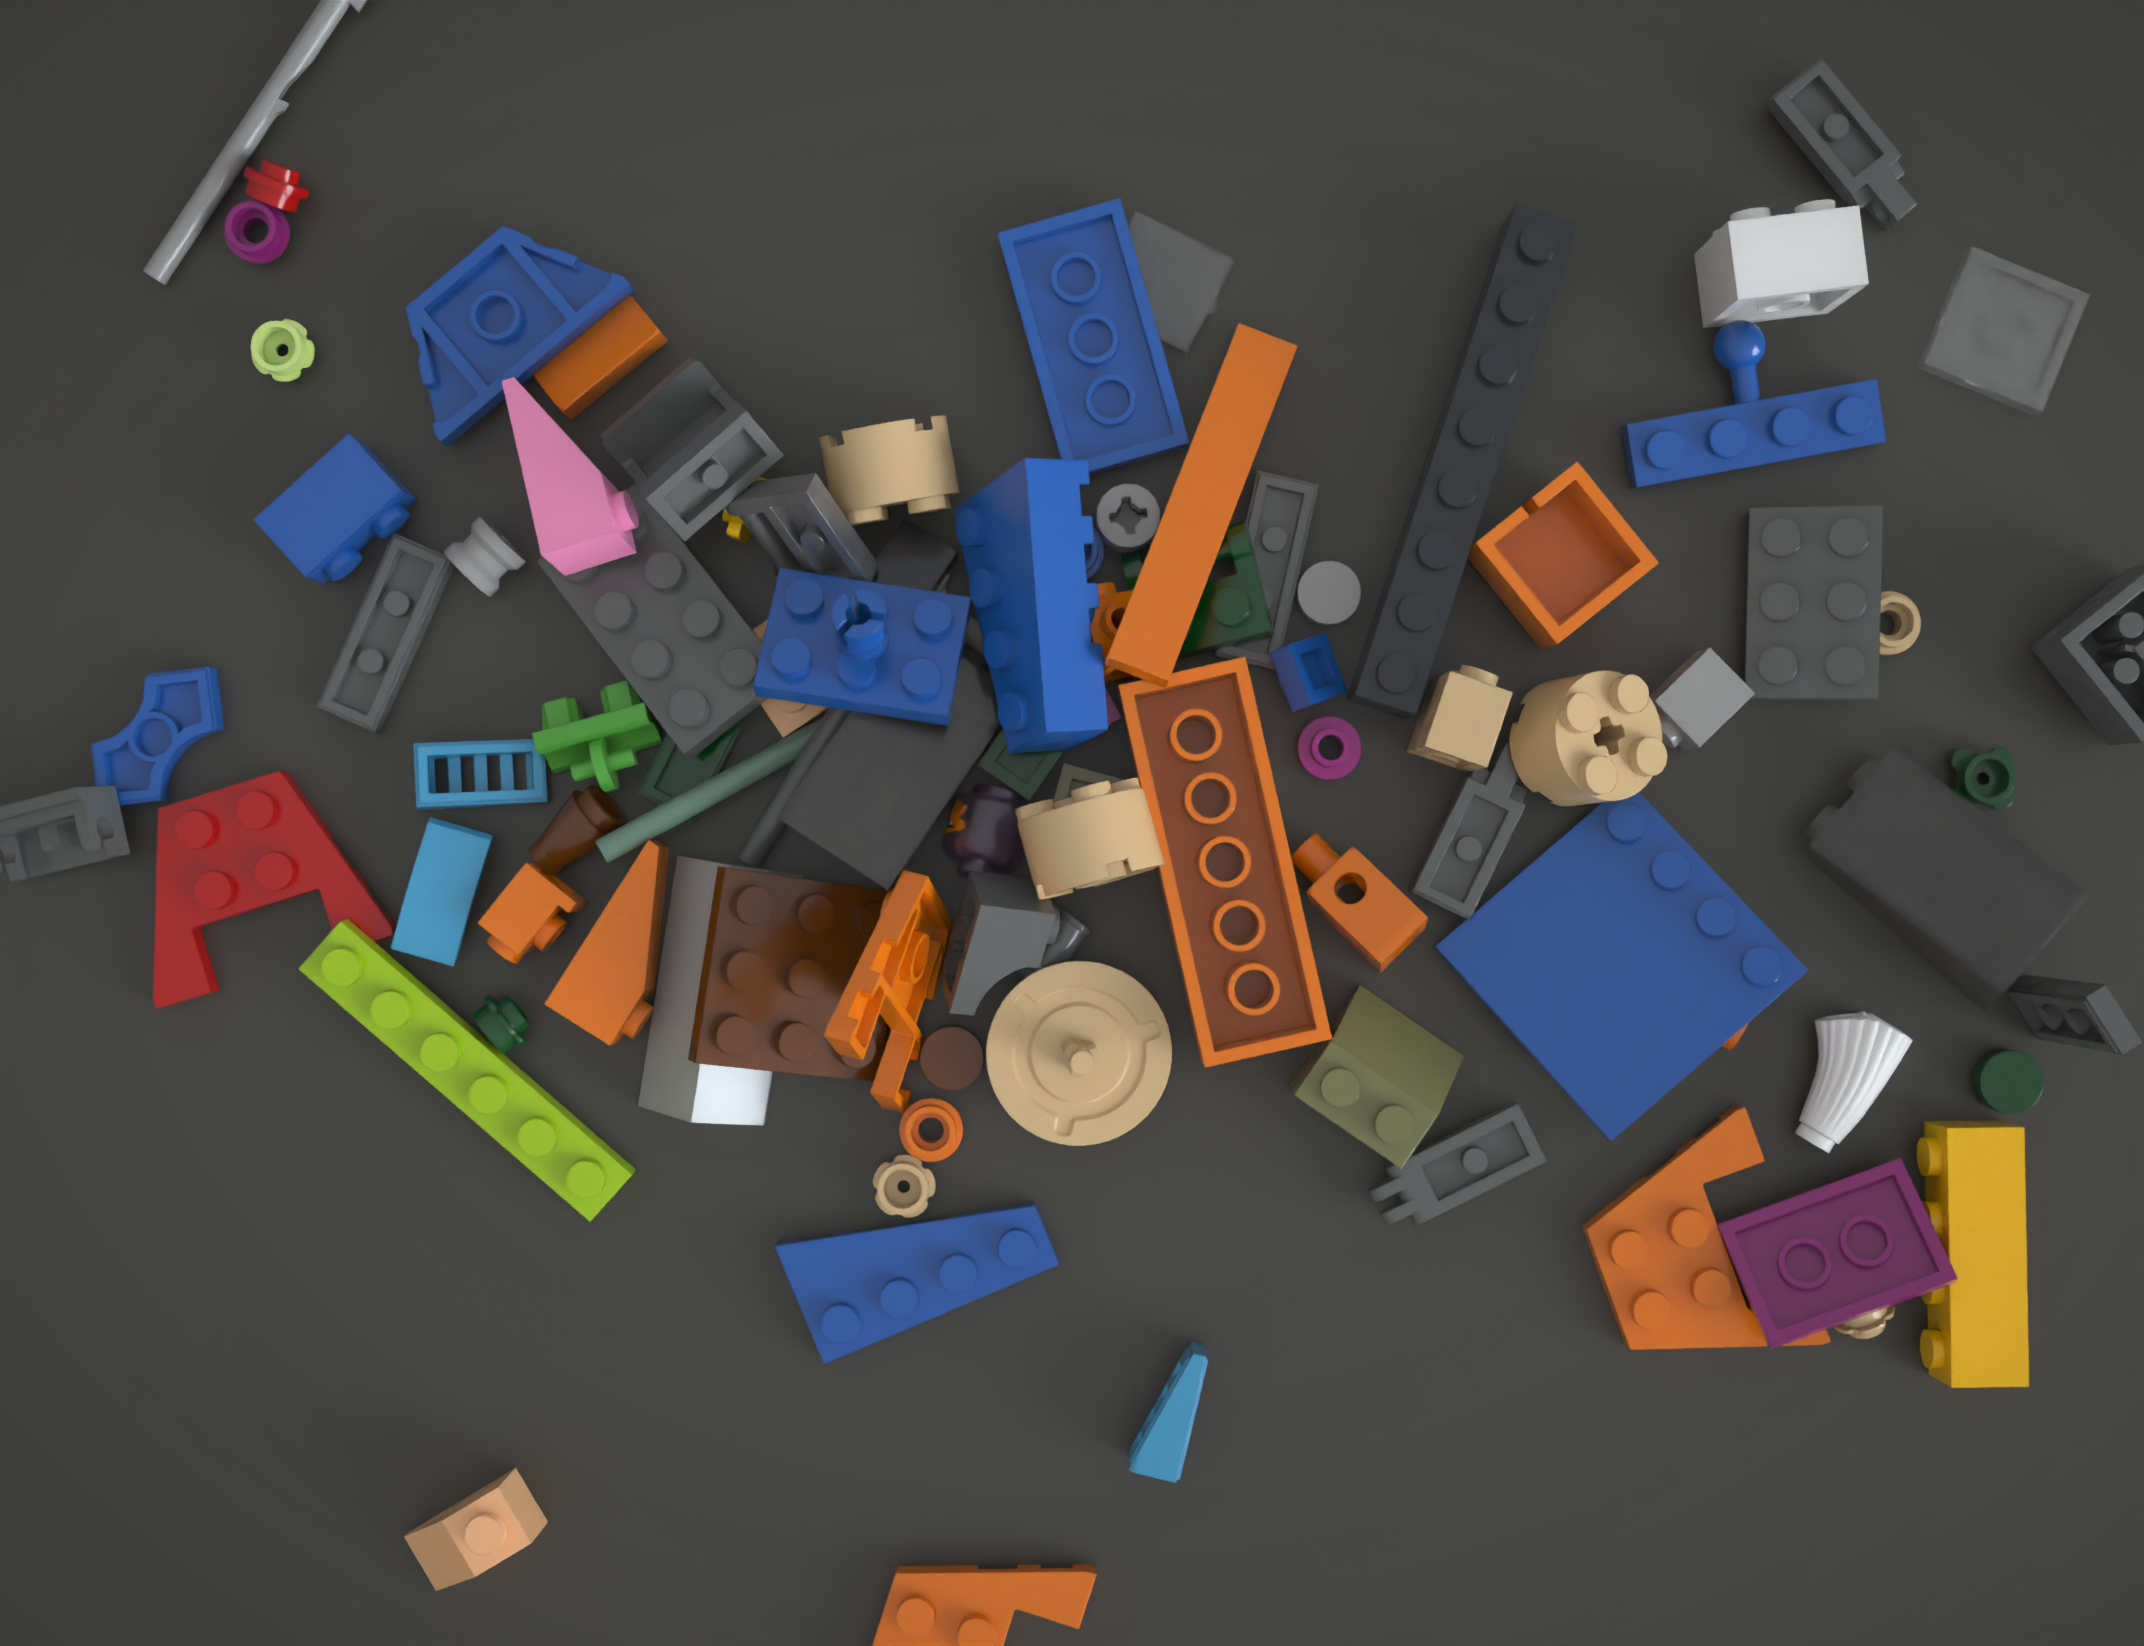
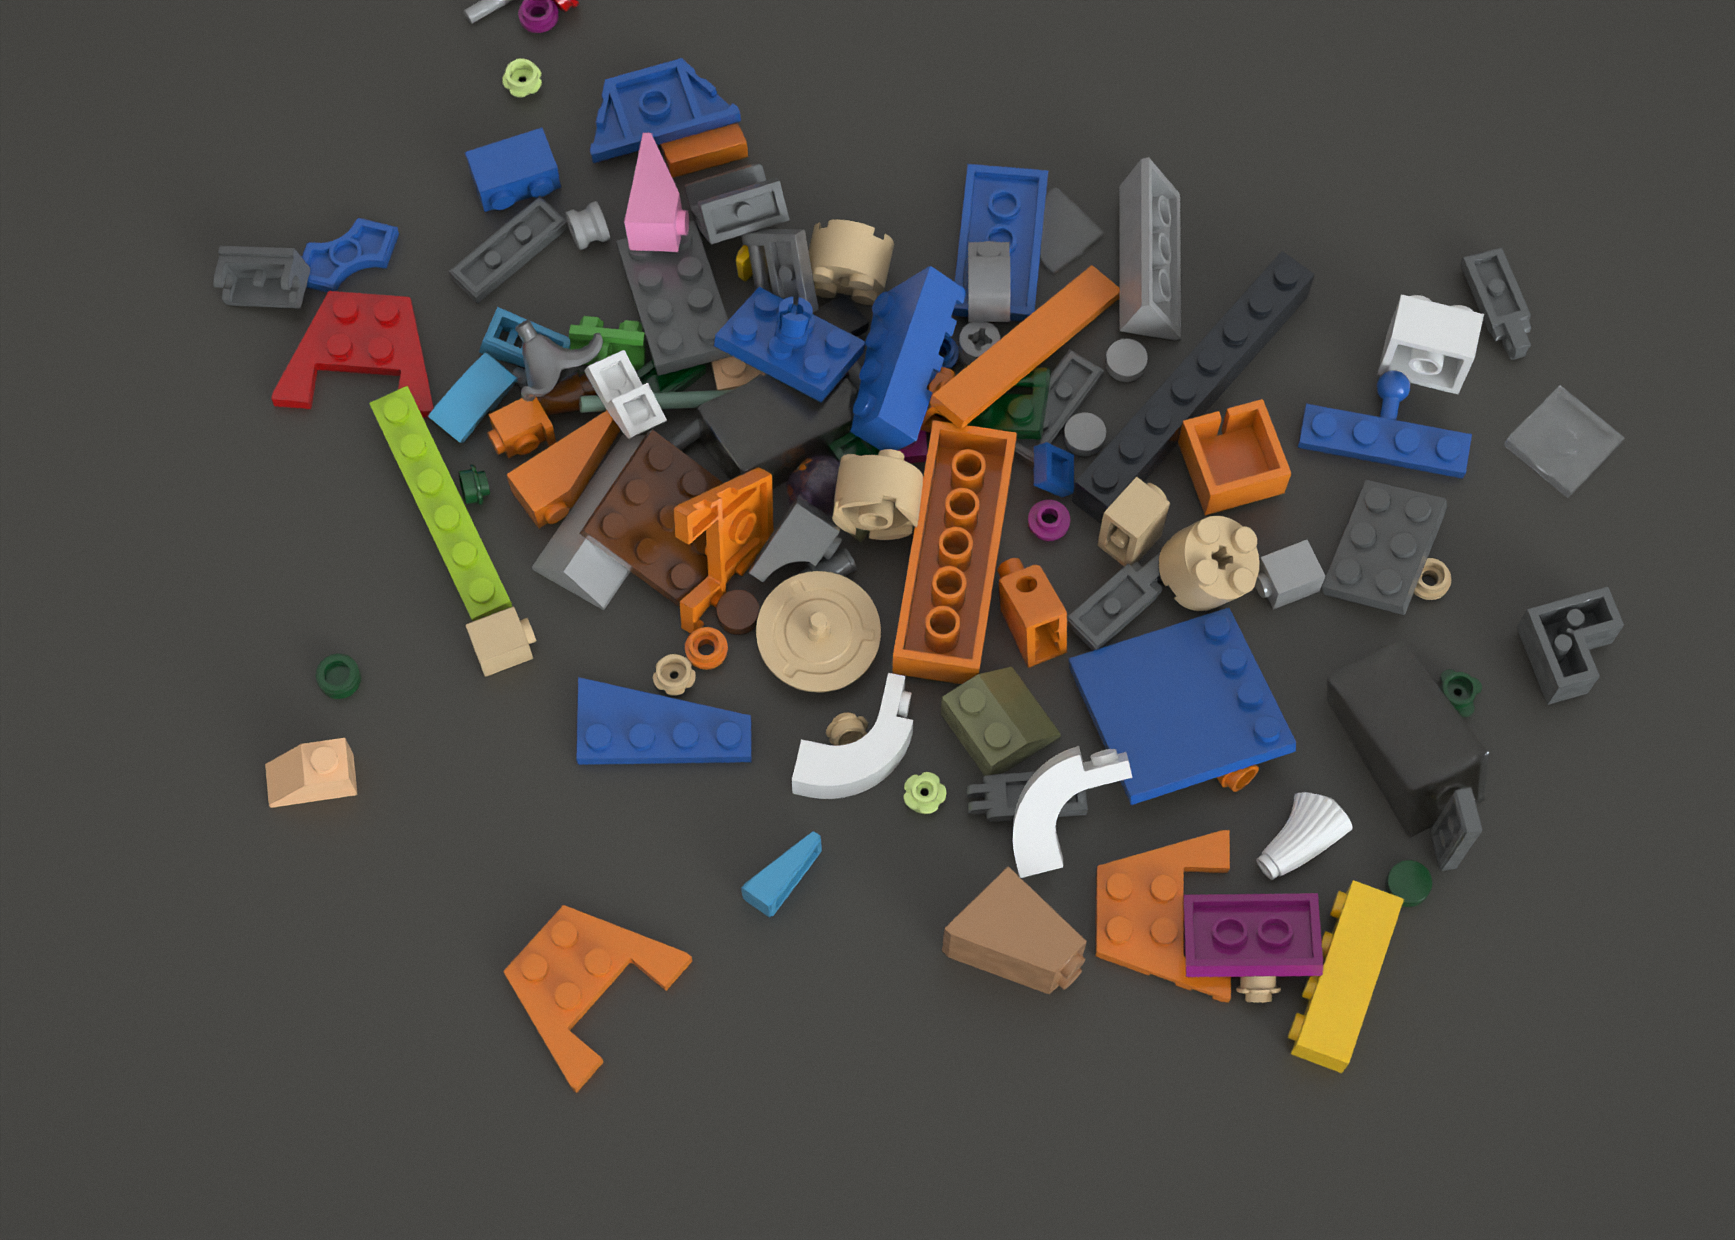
camera: 25 degrees right, 20 degrees down
(444, 1371) = (338, 676): none -> dark green tile
(525, 816) = (546, 360): none -> flat silver piece
(645, 1240) = (501, 640): none -> tan brick
(660, 819) = (624, 396): none -> white slope
(1108, 422) = (988, 282): none -> flat silver brick
(1175, 1175) = (846, 729): none -> tan plate
(1205, 1229) = (853, 768): none -> white arch
(1310, 1201) = (920, 803): none -> yellowish green plate
(1316, 275) = (1150, 254): none -> light grey slope
(1343, 453) = (1126, 360): none -> light grey tile
(1503, 1170) = (1045, 794): none -> white arch
(1524, 1394) = (1016, 937): none -> medium nougat slope

